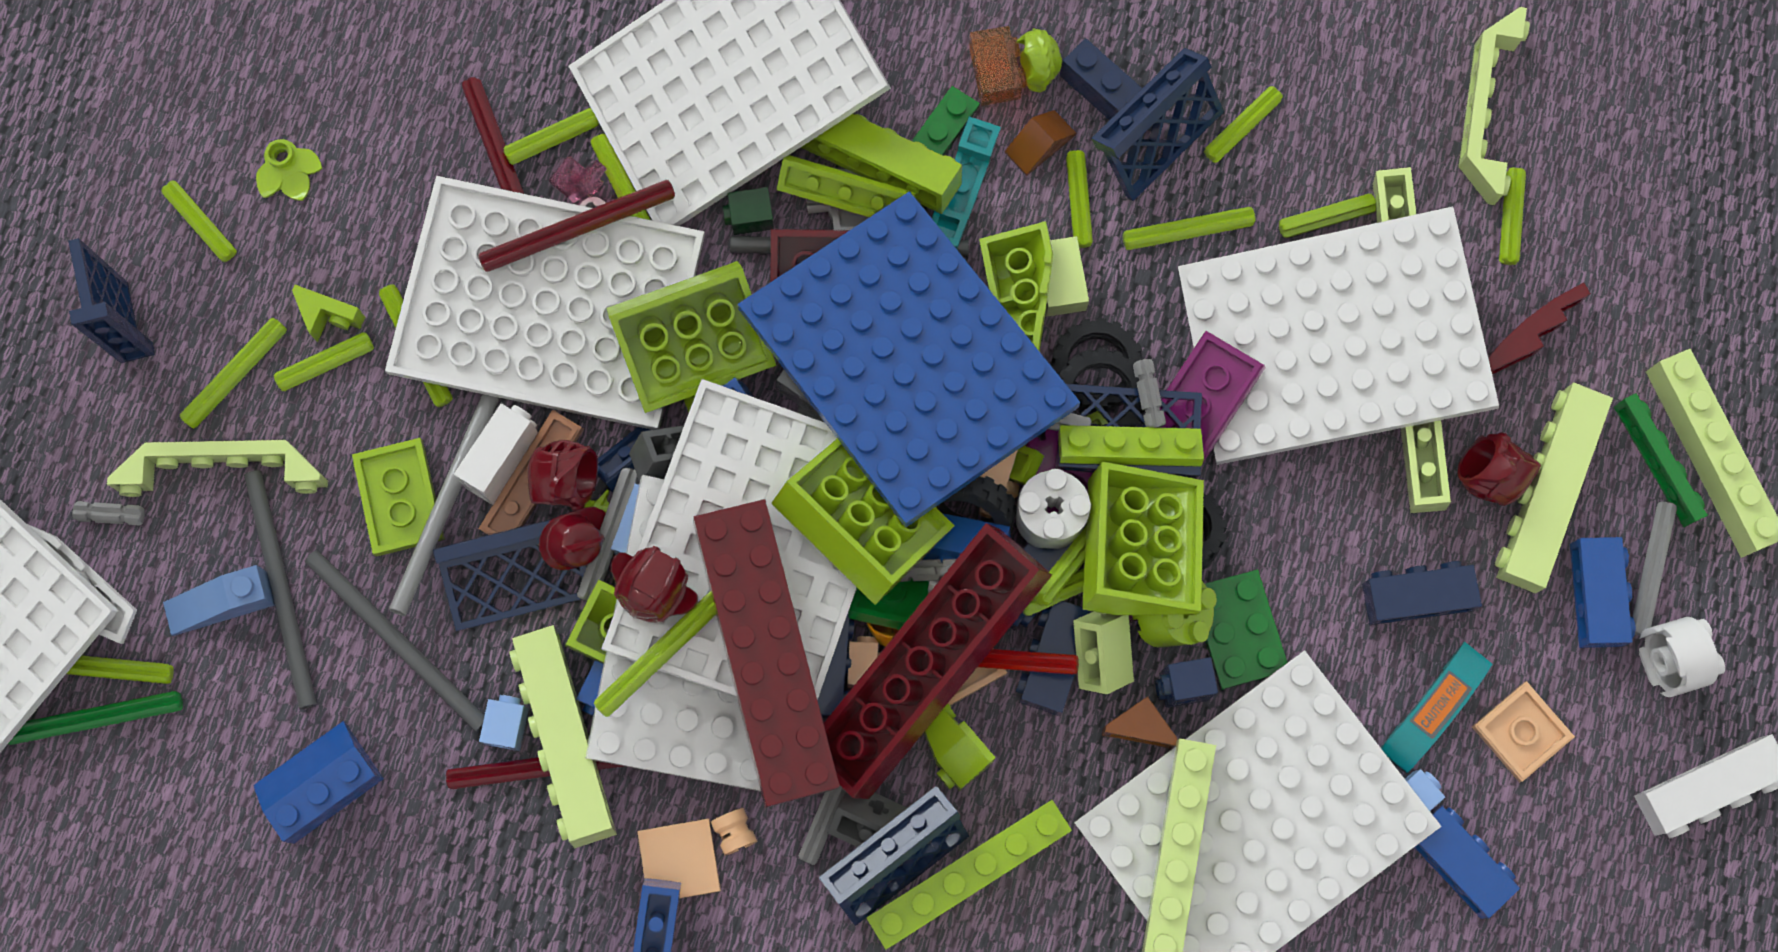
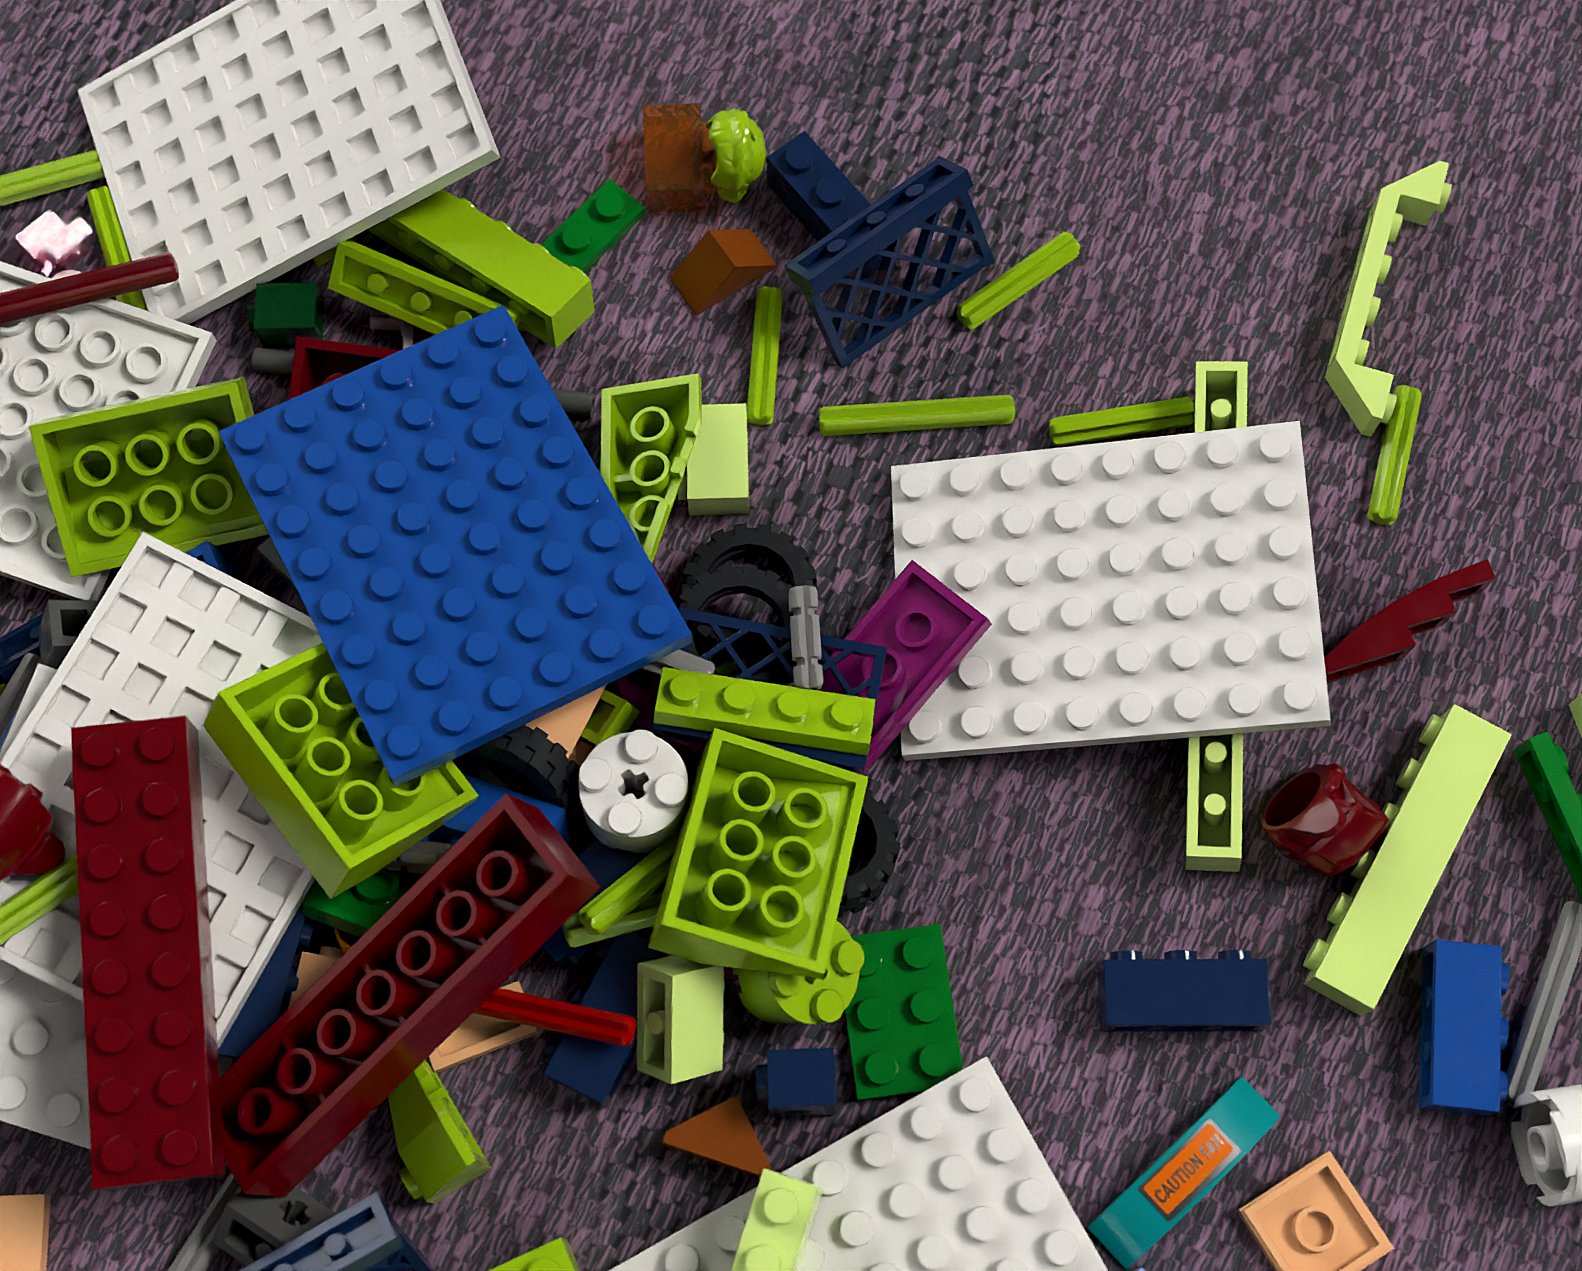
camera: 10 degrees right, 5 degrees down
(733, 831) = (76, 1219): light nougat wheel -> none
(975, 155) = (617, 292): teal slope -> none

